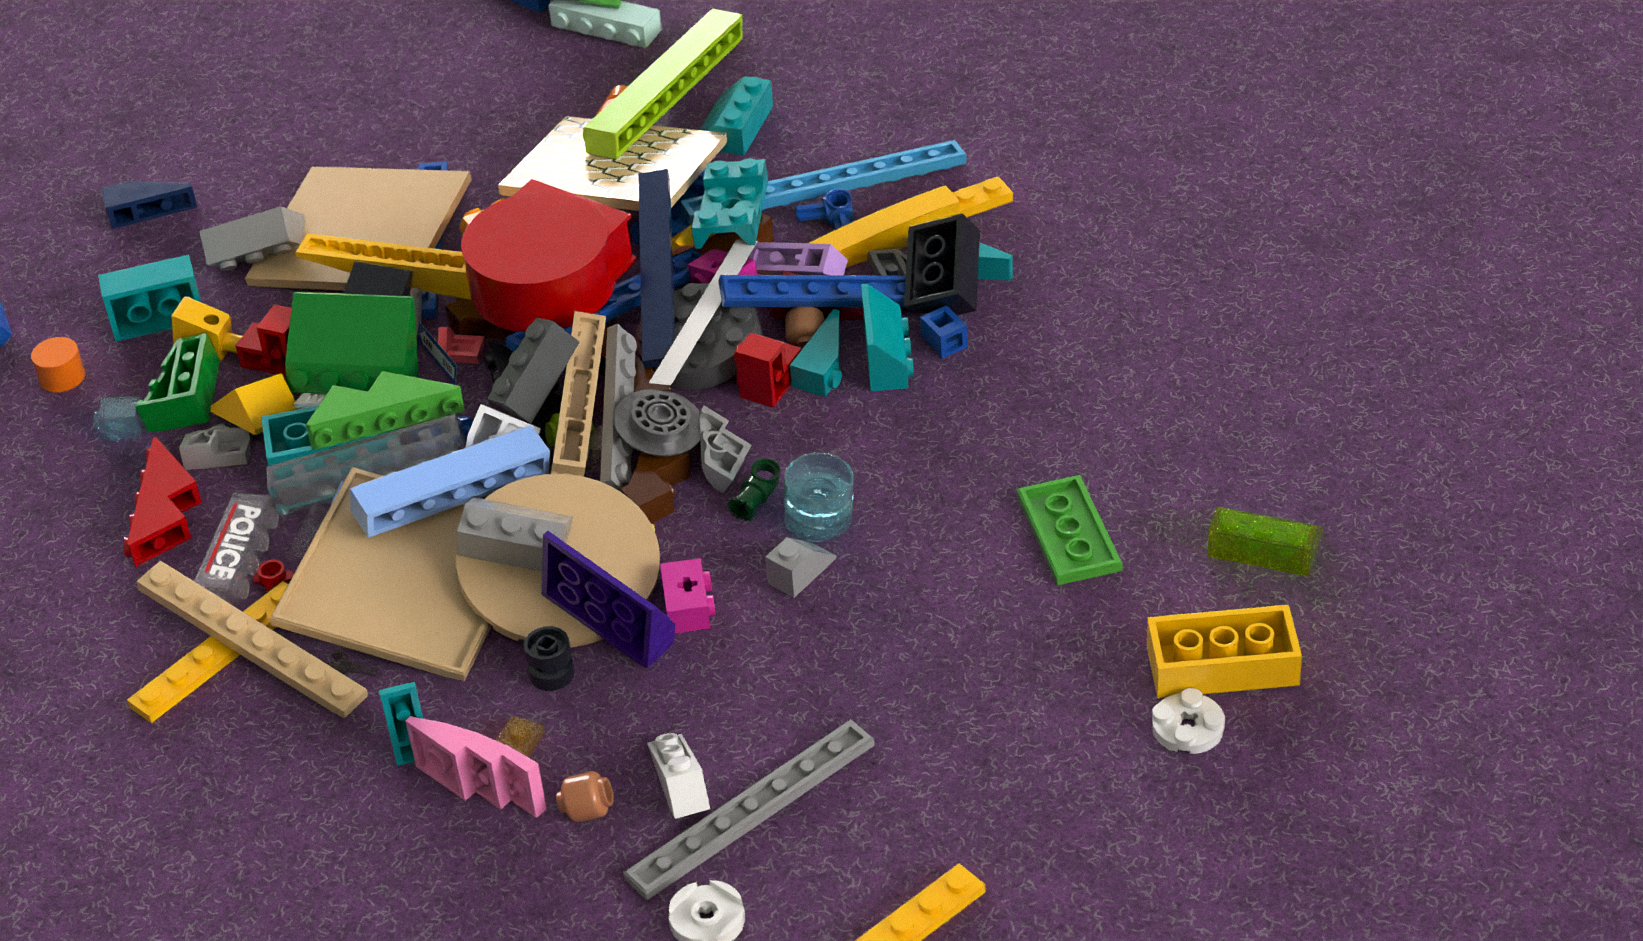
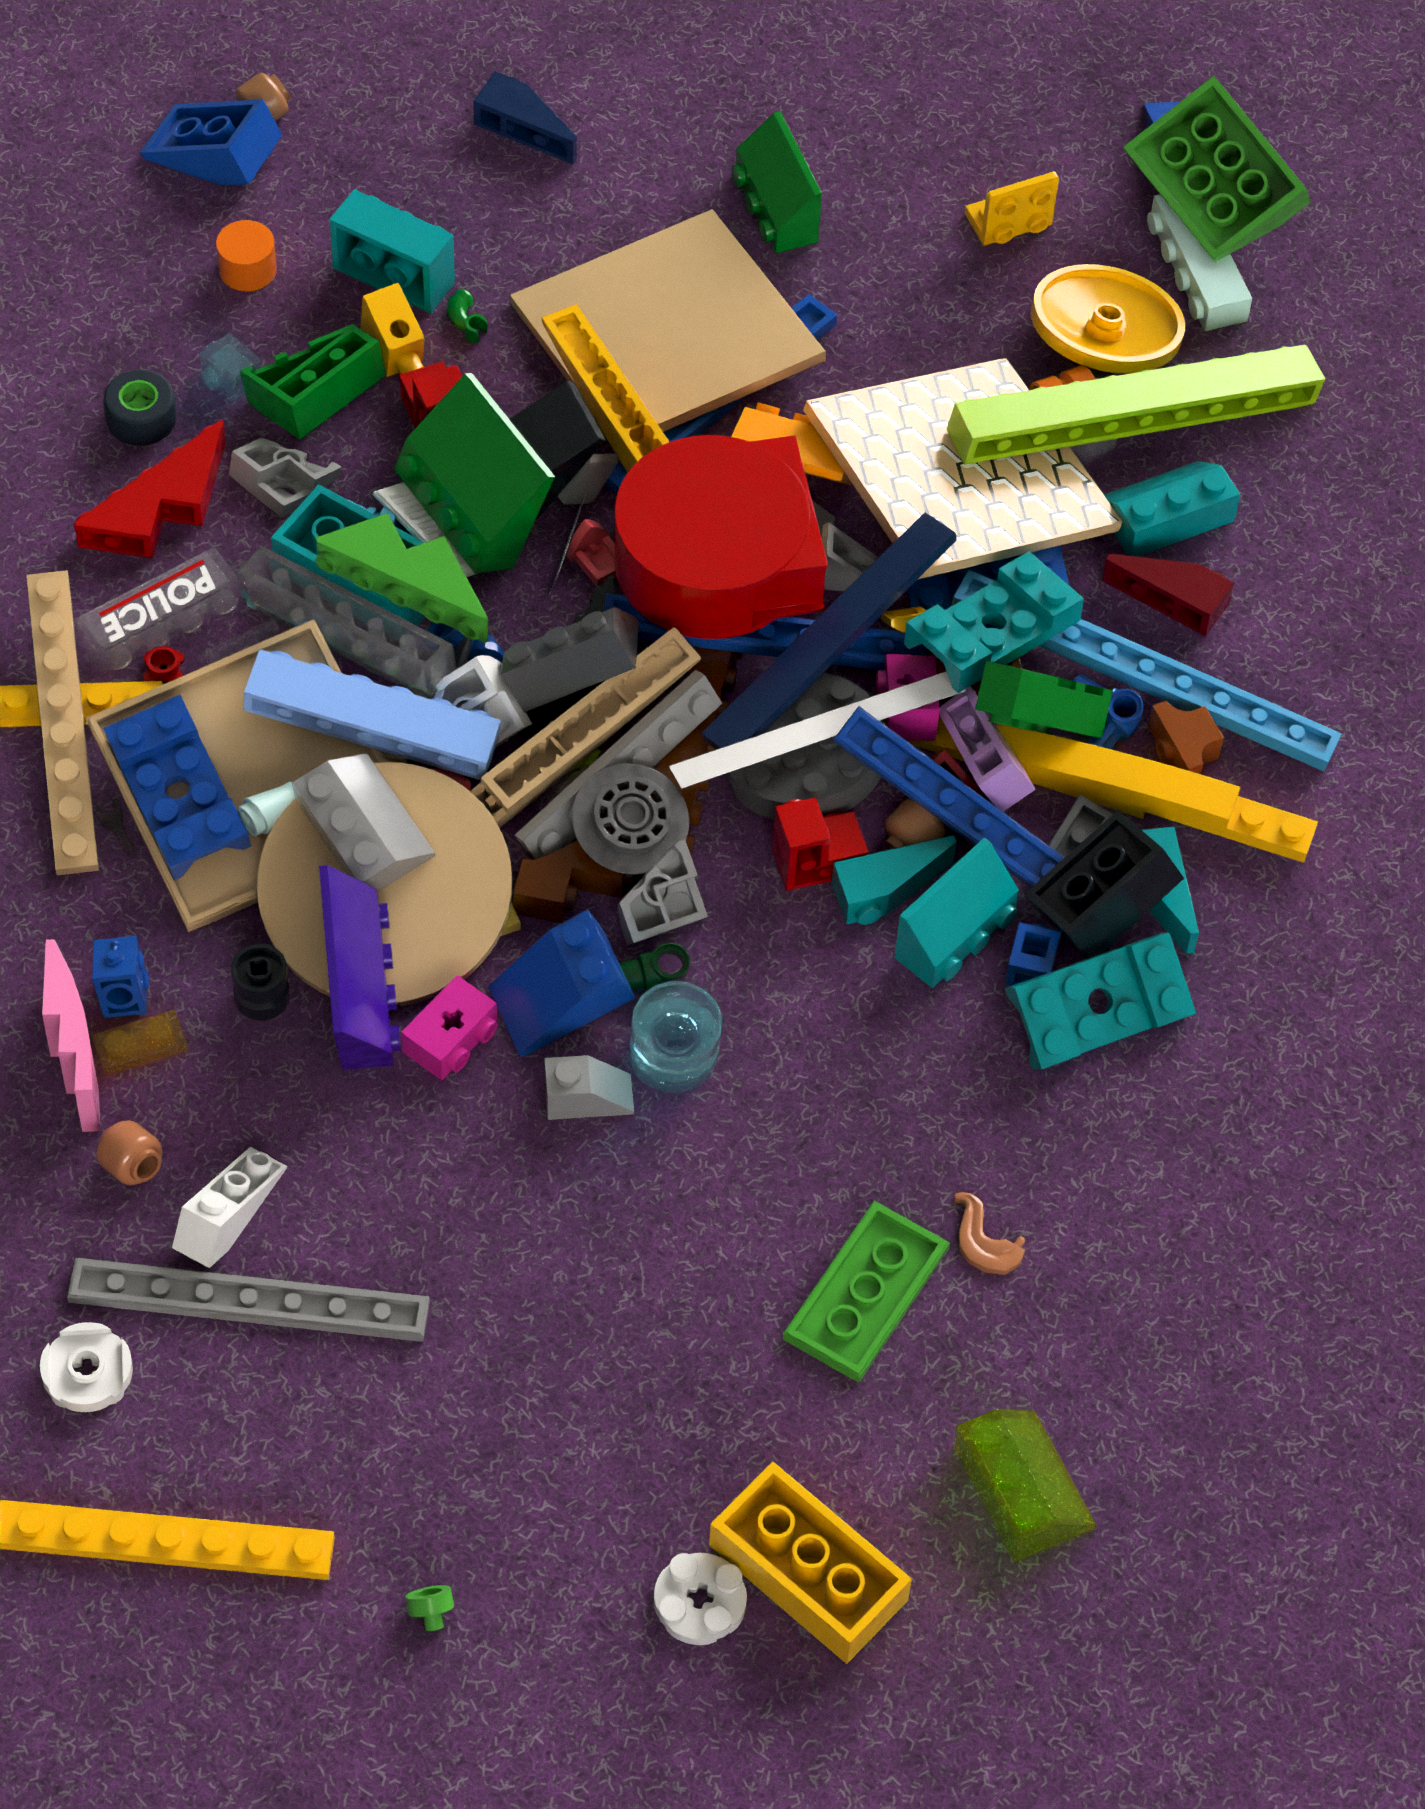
camera: 40 degrees right, 15 degrees up
(87, 474) = (139, 407): none -> black wheel
(242, 304) = (457, 311): none -> green arm
(250, 402) = (349, 463): yellow slope -> none
(252, 238) = (553, 258): light grey slope -> none
(339, 127) = (778, 186): none -> green slope
(340, 595) = (164, 749): none -> blue piece
(398, 705) = (71, 933): teal slope -> none
(443, 576) = (264, 809): none -> light aqua cone
(463, 710) = (120, 977): none -> blue head
(483, 59) = (1014, 209): none -> yellow bracket
(595, 66) = (1107, 318): none -> yellow dish
(724, 521) = (560, 984): none -> blue slope
(789, 144) = (1174, 588): none -> dark red slope
(802, 217) = (1041, 701): none -> green wedge
(880, 192) = (1185, 737): none -> dark orange brick
(1018, 300) = (1141, 989): none -> teal piece
(1060, 846) = (430, 1604): none -> bright green tile
(1102, 467) = (980, 1250): none -> nougat piece

